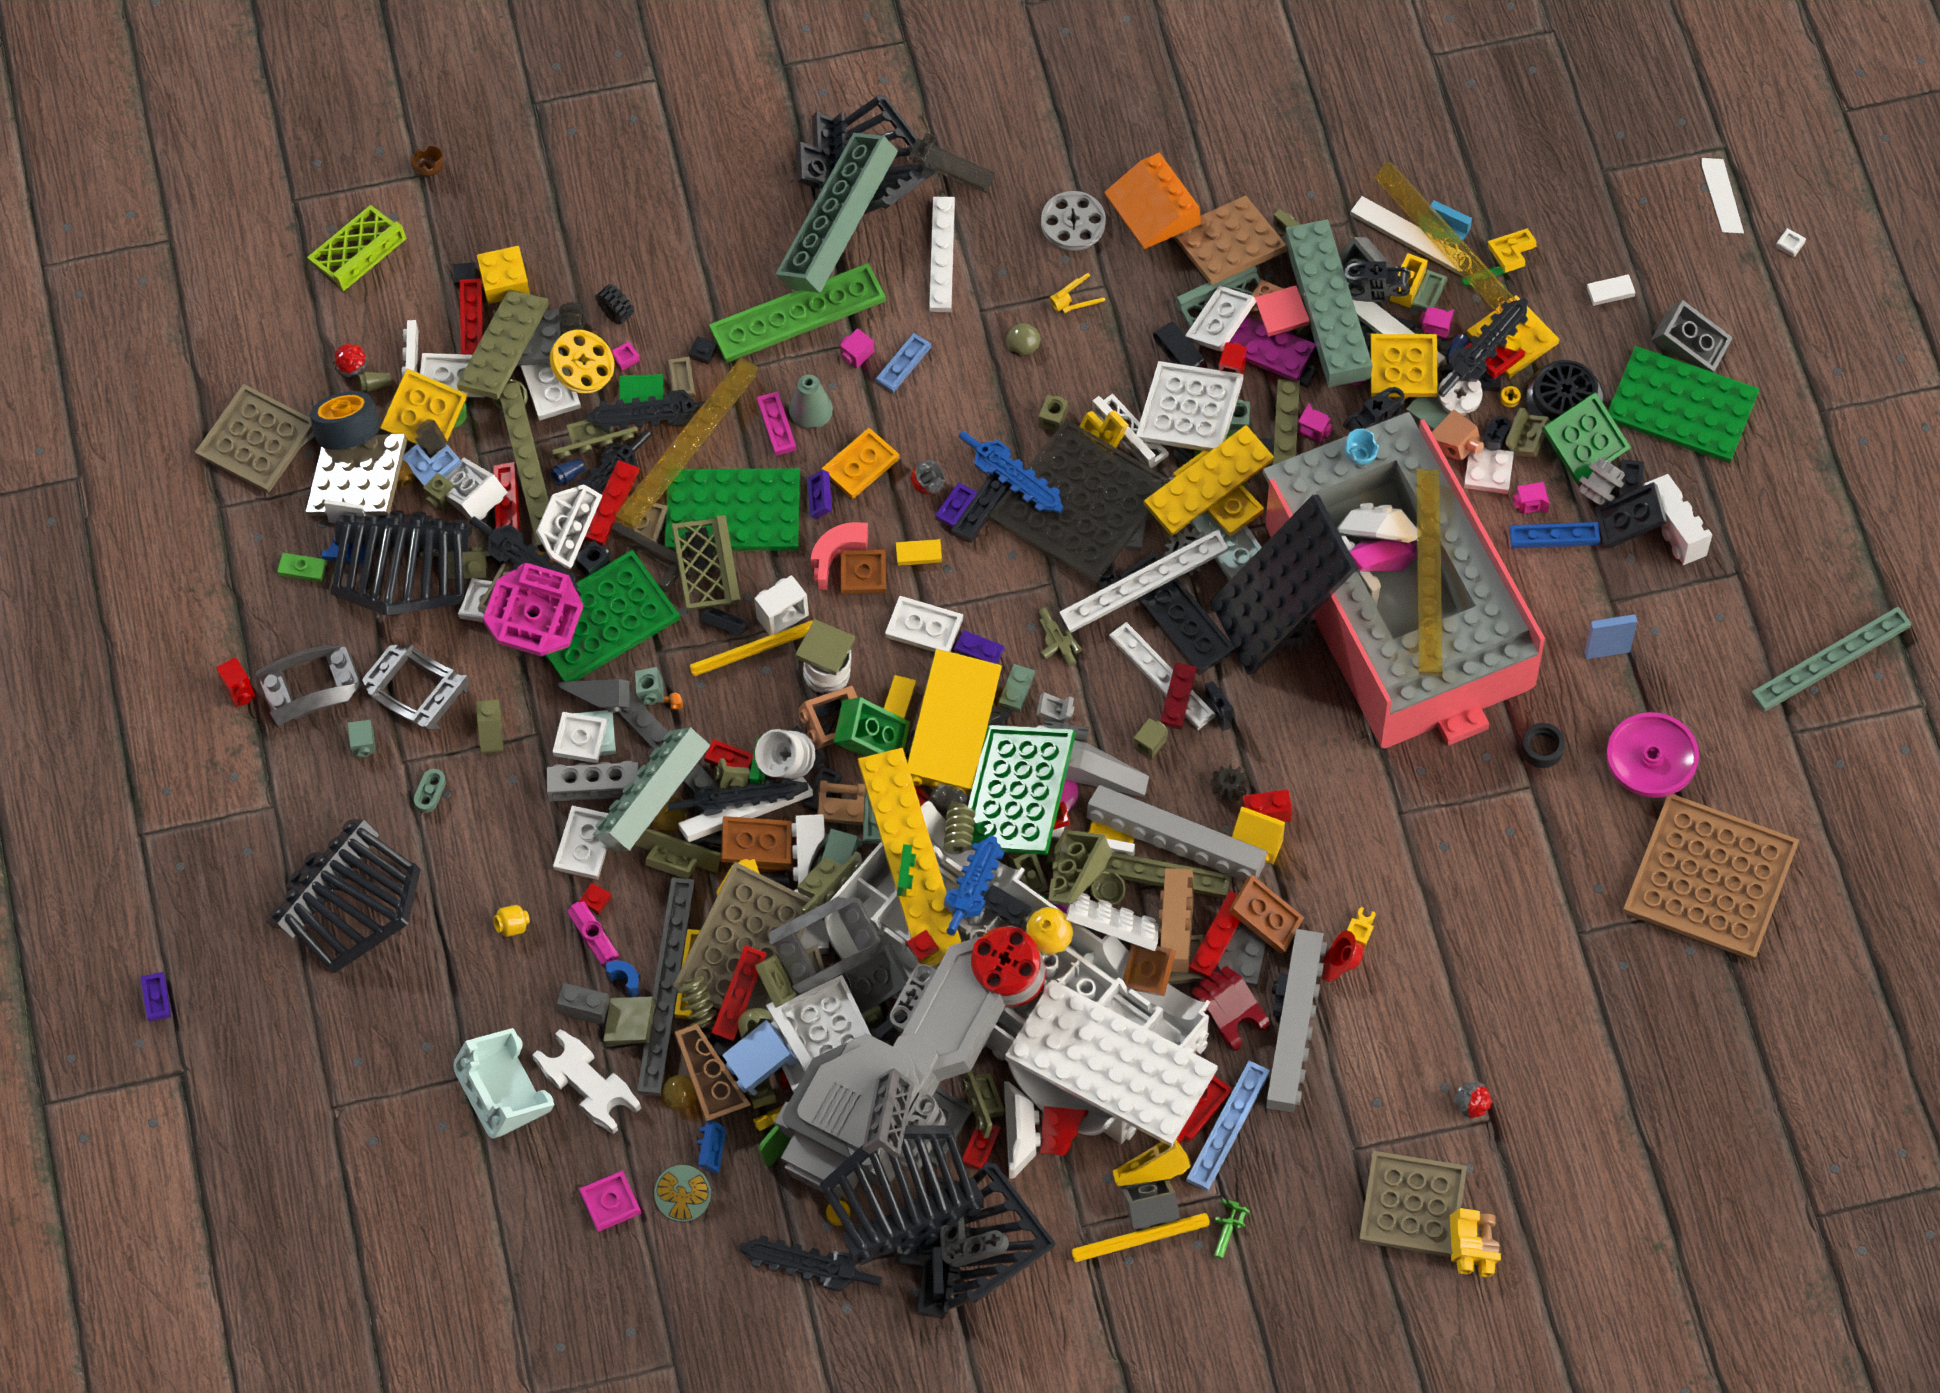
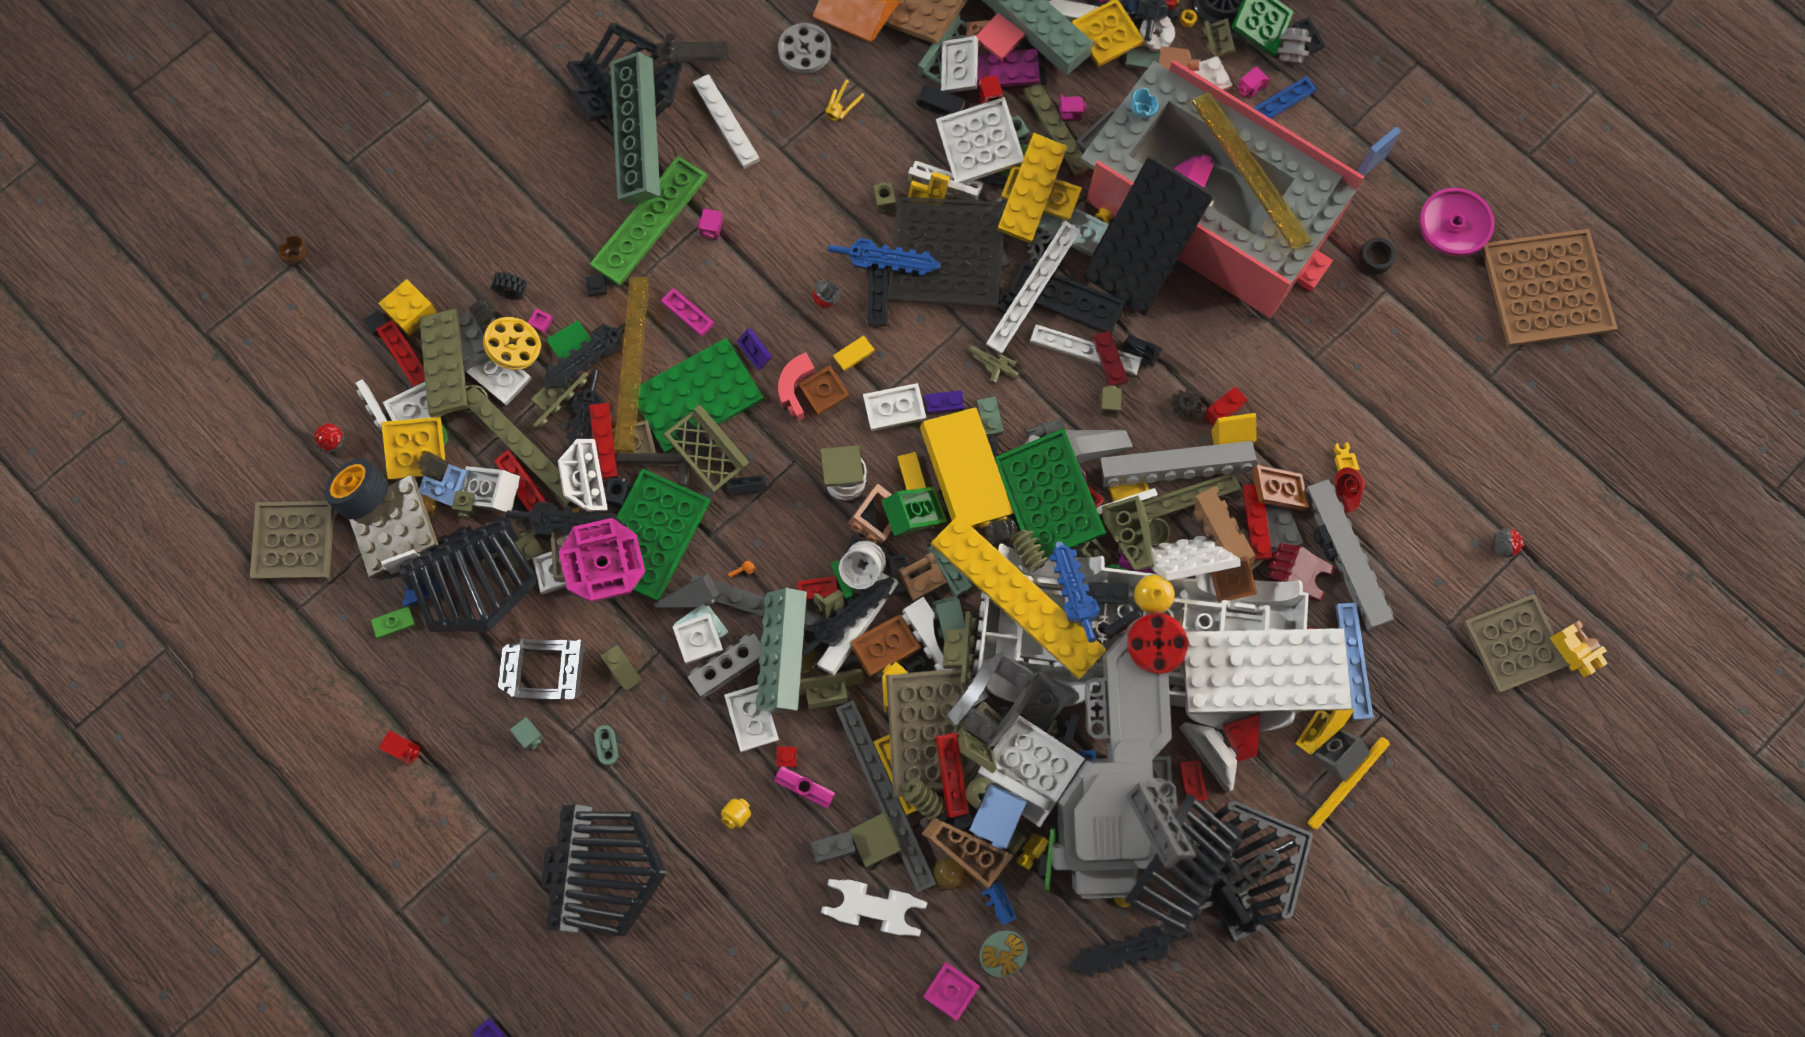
camera: 35 degrees left, 10 degrees up
(277, 692) = (436, 733): flat silver wedge -> none
(367, 255) = (291, 347): lime fence -> none
(372, 381) = (357, 444): olive cone -> none
(498, 1083) = (811, 951): light aqua windscreen -> none
(567, 471) = (553, 434): dark blue cone -> none
(623, 970) = (850, 802): blue piece -> none
(649, 686) = (718, 562): sand green brick -> none
(681, 375) = (592, 313): dark tan tile -> none
(750, 649) = (780, 494): yellow axle -> none
(781, 605) = (783, 450): white brick -> none
(810, 403) = (703, 284): sand green cone -> none
(861, 463) = (769, 309): light orange plate -> none
(903, 363) = (750, 217): medium blue tile -> none
(905, 880) = (1023, 604): green plate -> none
(922, 946) = (1074, 662): red plate -> none
(955, 505) = (859, 303): dark purple plate -> none
(982, 1099) = (1178, 751): olive bracket -> none
(1023, 339) = (825, 154): olive hair -> none
(1055, 708) = (1029, 417): light grey bracket -> none
(1228, 1226) = (1403, 738): bright green piece -> none
(1375, 410) = (1112, 78): black piece -> none
(1378, 523) = (1186, 152): white wedge -> none
(1499, 434) = (1196, 49): black beam -> none
(1631, 515) = (1329, 58): black plate -> none
(1683, 529) = (1358, 45): white wedge -> none
(1831, 659) = (1520, 90): sand green plate -> none

